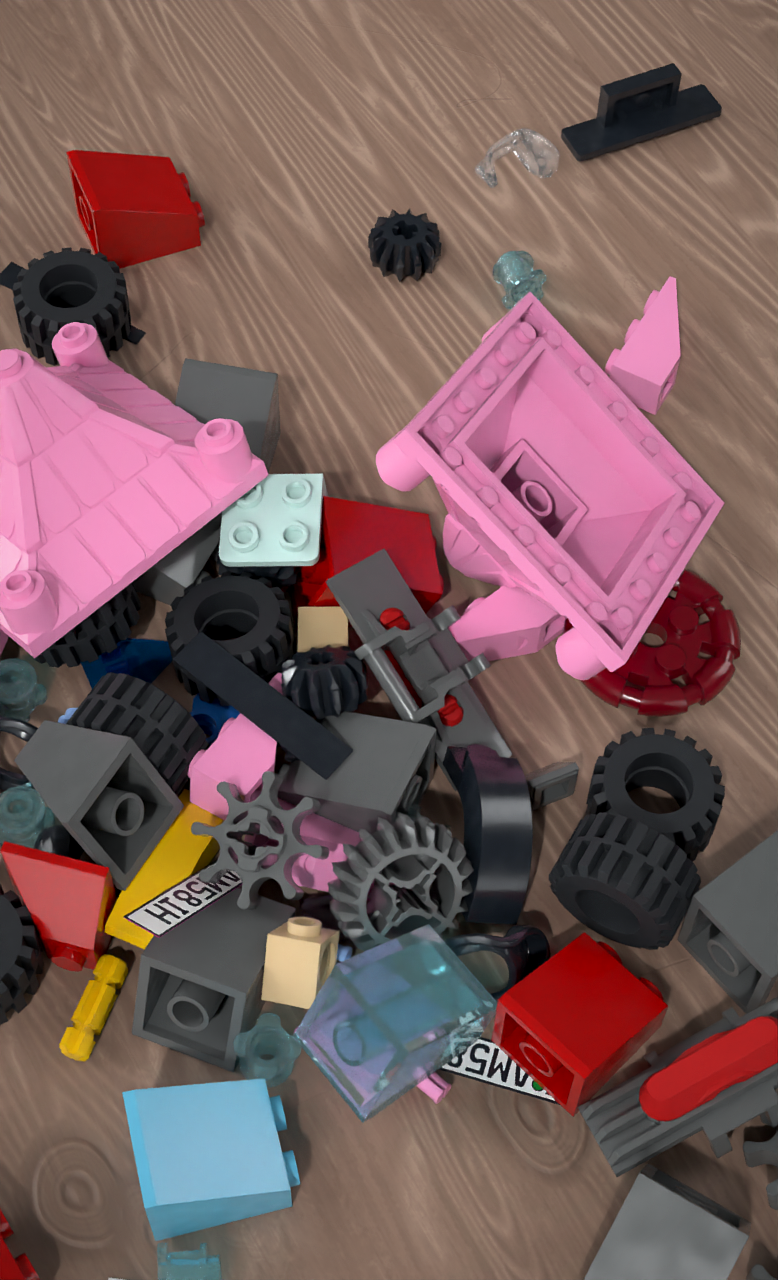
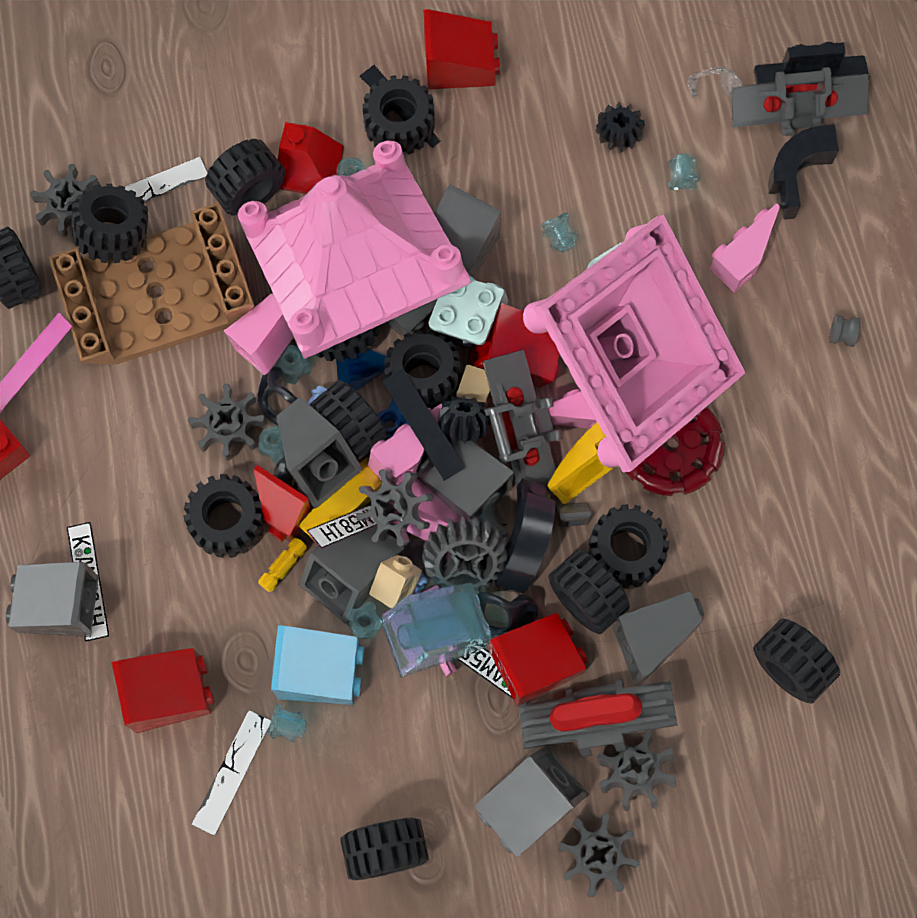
camera: 20 degrees right, 15 degrees up
(370, 398) = (559, 233): none -> clear light blue brick
(535, 695) = (579, 467): none -> yellow slope
(644, 159) = (799, 103): none -> dark grey piece
(674, 209) = (807, 148): none -> black arch

